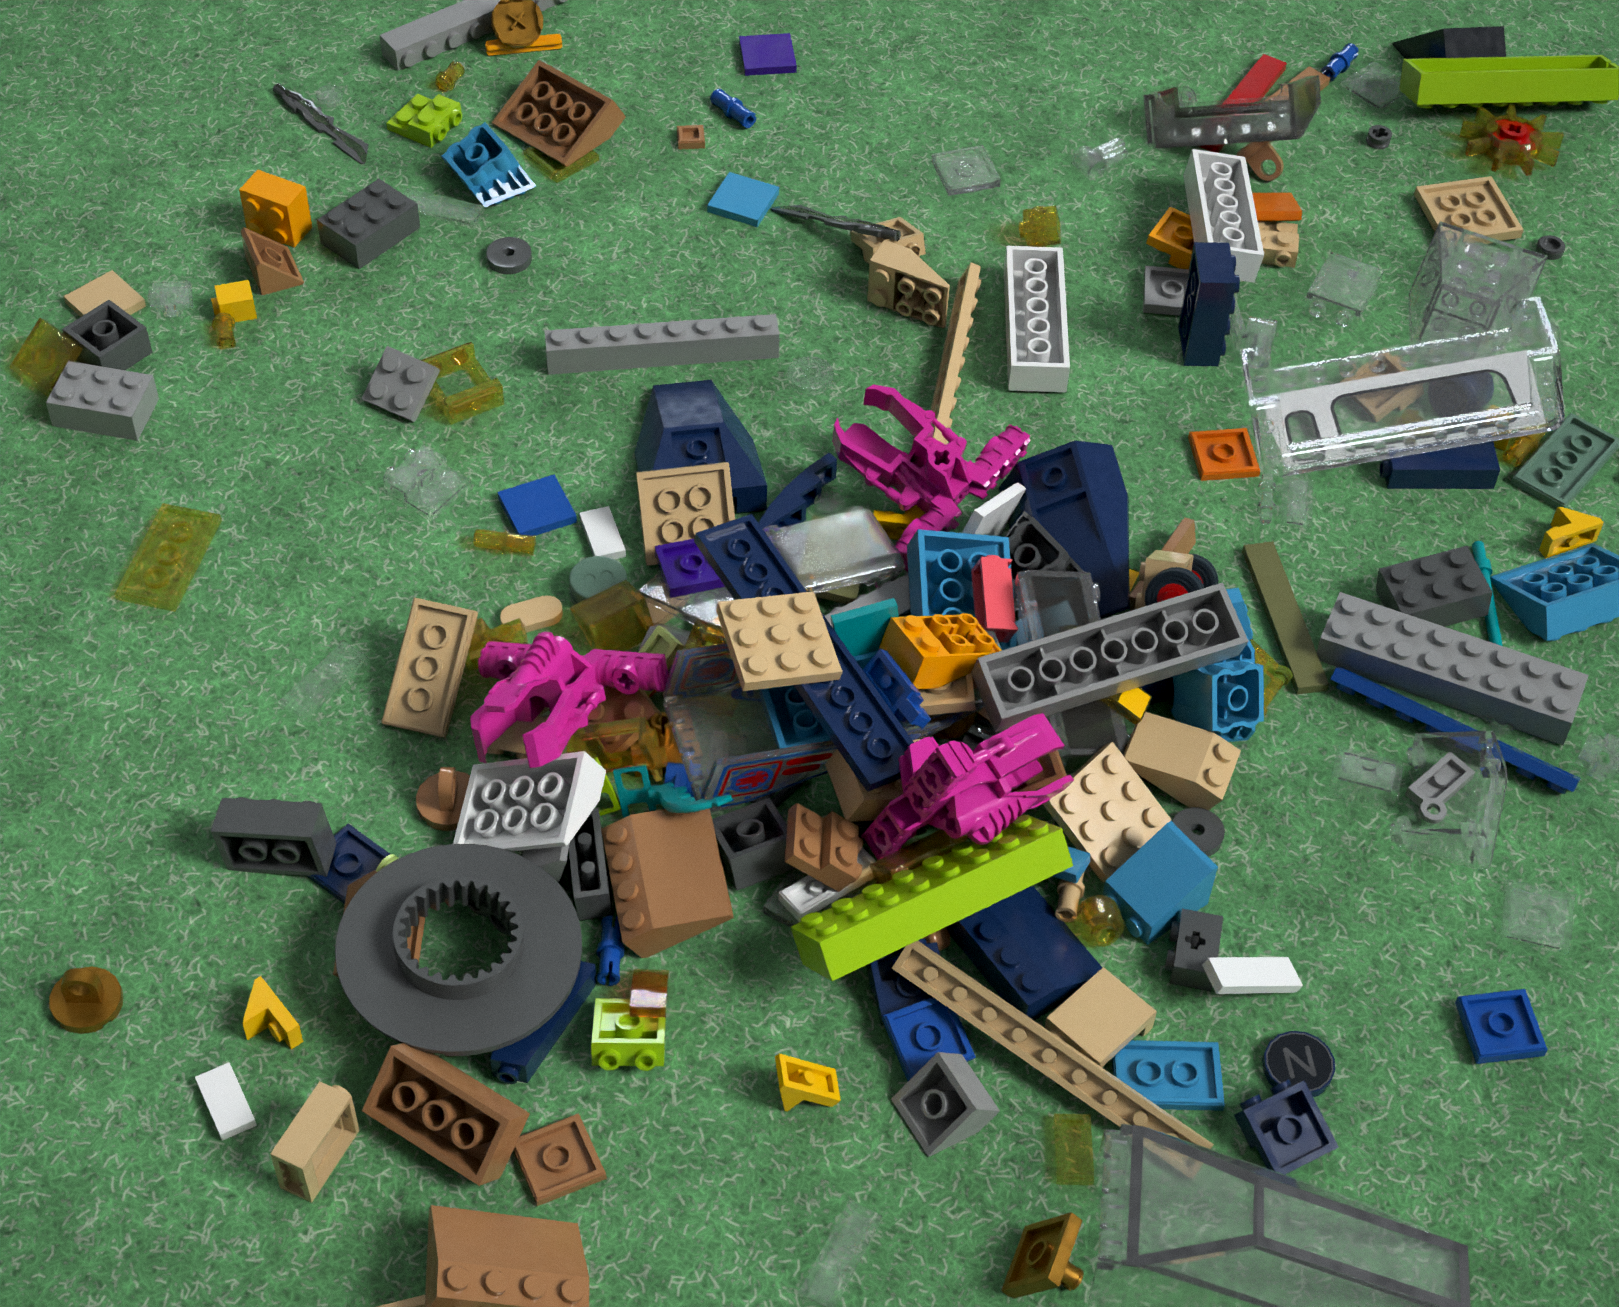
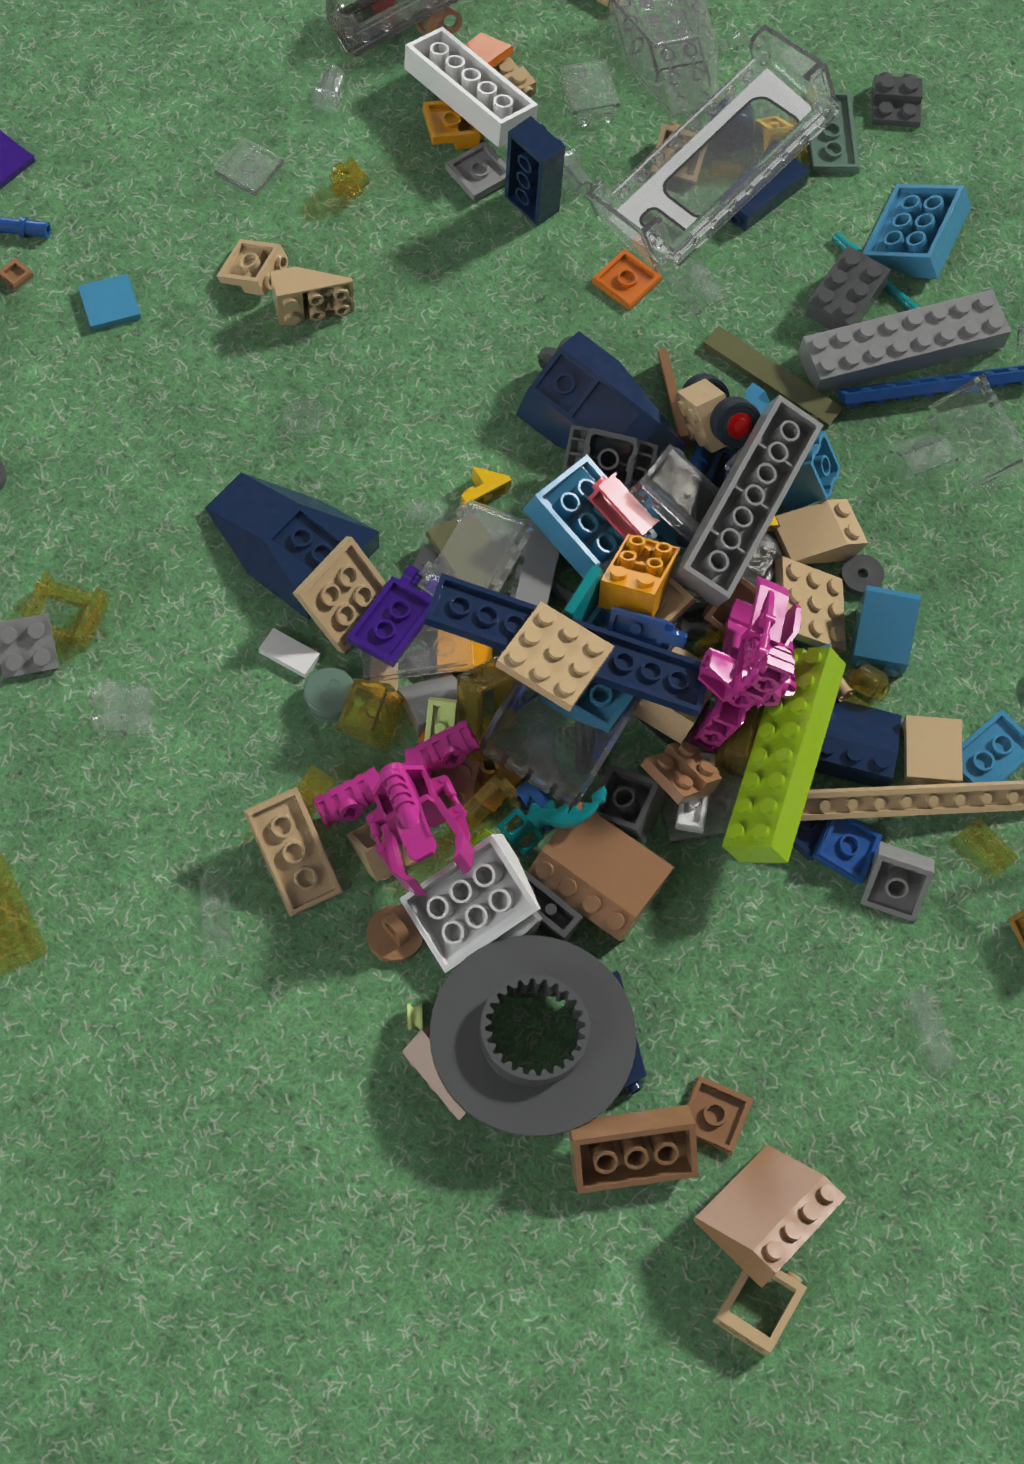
camera: 45 degrees left, 15 degrees up
(86, 999) = (310, 1279): pearl gold tile -> none
(225, 1101) = (476, 1263): white tile -> none
(267, 1011) = (438, 1179): yellow slope -> none
(274, 836) = (322, 1060): dark grey brick -> none
(315, 1141) = (574, 1238): tan window -> none
(352, 859) = (377, 1035): dark blue tile -> none
(504, 541) = (230, 711): clear yellow axle -> none
(534, 613) = (305, 752): tan tile -> none
(537, 506) = (222, 667): blue tile -> none
(610, 951) = (606, 950): blue pin -> none
(626, 1039) = (677, 996): lime plate -> none
(649, 993) = (662, 958): clear orange slope -> none
(662, 344) = (179, 470): light grey brick -> none
(800, 493) = (397, 531): dark blue slope -> none
(806, 1081) = (811, 938): yellow slope -> none
(842, 222) = (203, 274): dark grey sword -> none
(932, 472) = (474, 440): dark pink piece -> none
(955, 345) = (400, 349): tan plate -> none
(994, 514) = (550, 446): white tile -> none
(1036, 319) = (417, 259): white brick -> none
(1195, 940) = (938, 658): dark grey brick -> none
(1252, 975) = (986, 650): white tile -> none
(1438, 786) = (968, 433): light grey hinge -> none
(1569, 531) = (880, 184): yellow slope -> none

